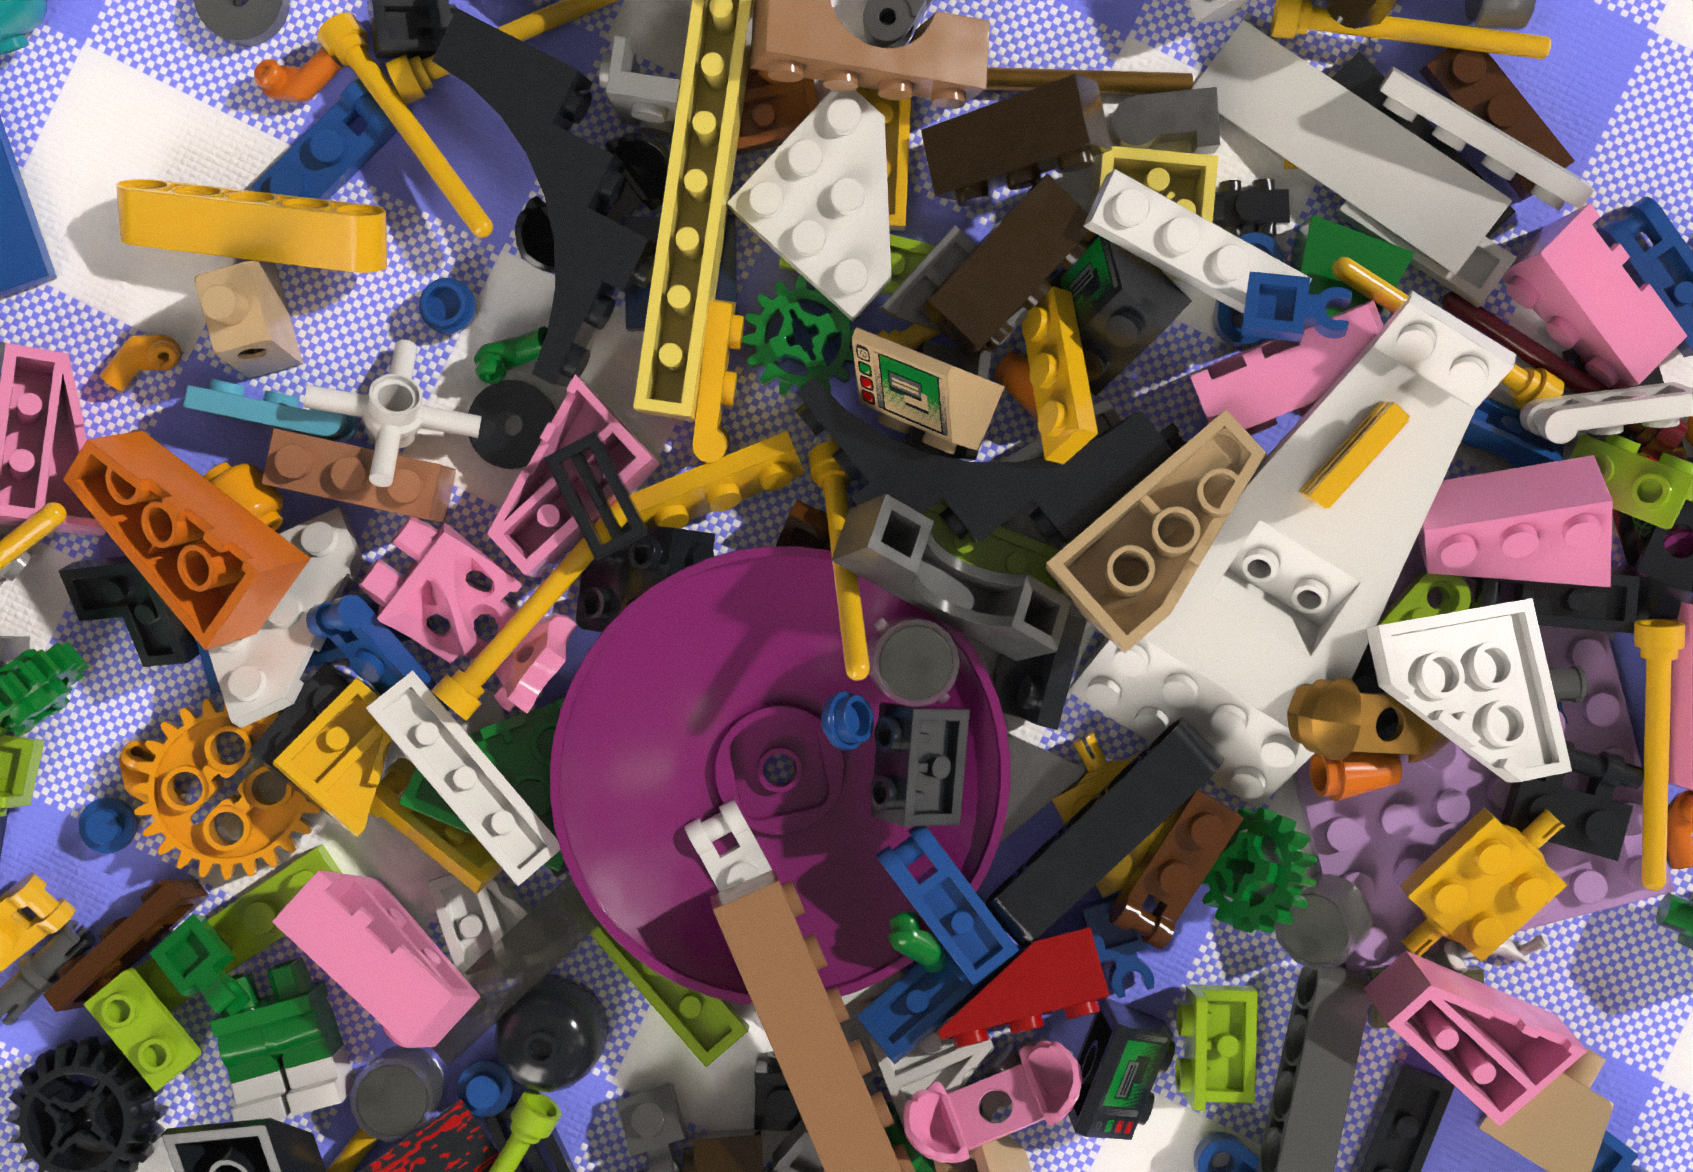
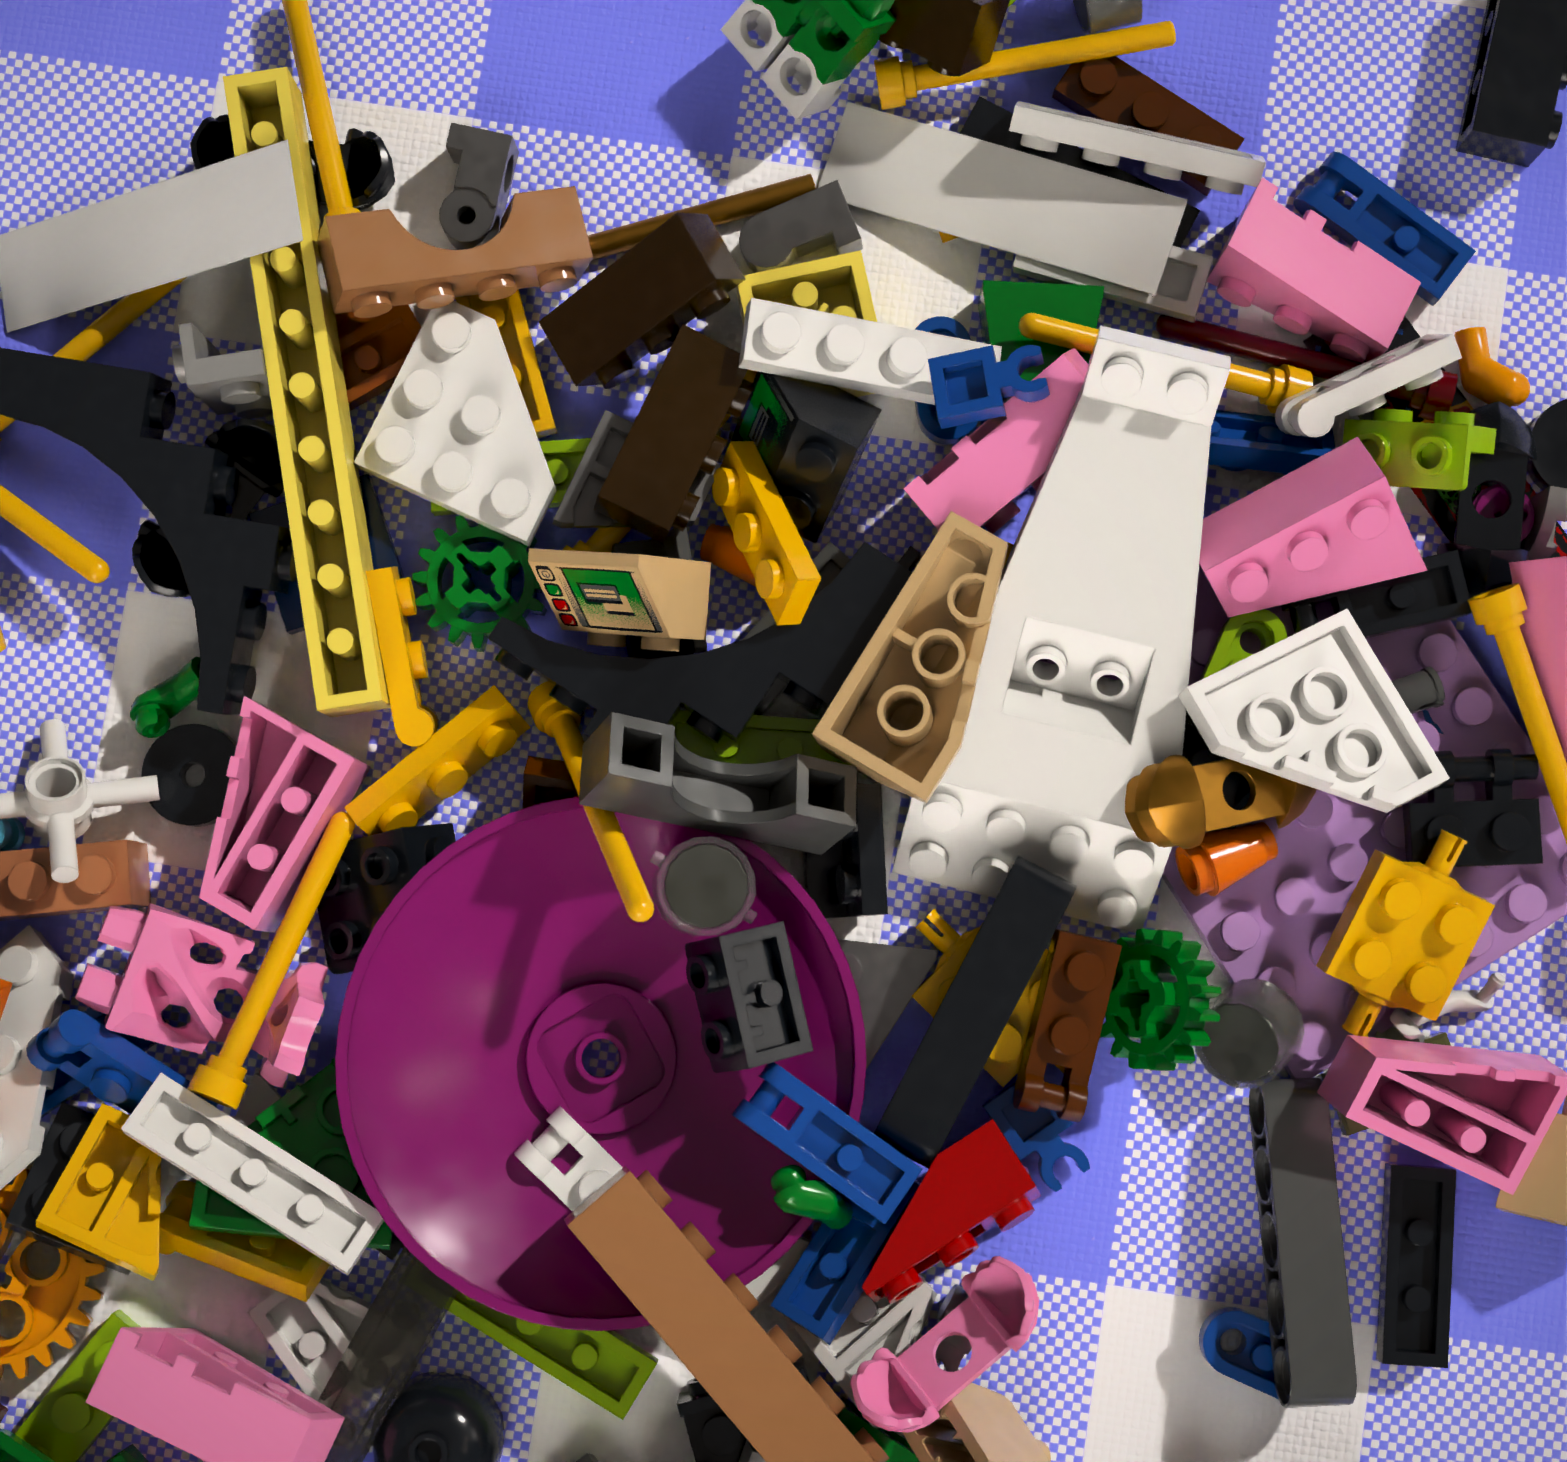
camera: 15 degrees left, 5 degrees down
(447, 306) = (85, 668): blue plate -> none
(620, 539) = (346, 857): black tile -> none
(847, 720) = (652, 974): blue plate -> none
(1119, 1070) = (1081, 1273): black slope -> none
(1218, 1044) = (1183, 1209): lime bracket -> none
(1256, 206) = (925, 290): black piece -> none
(1355, 454) = (1098, 514): yellow tile -> none

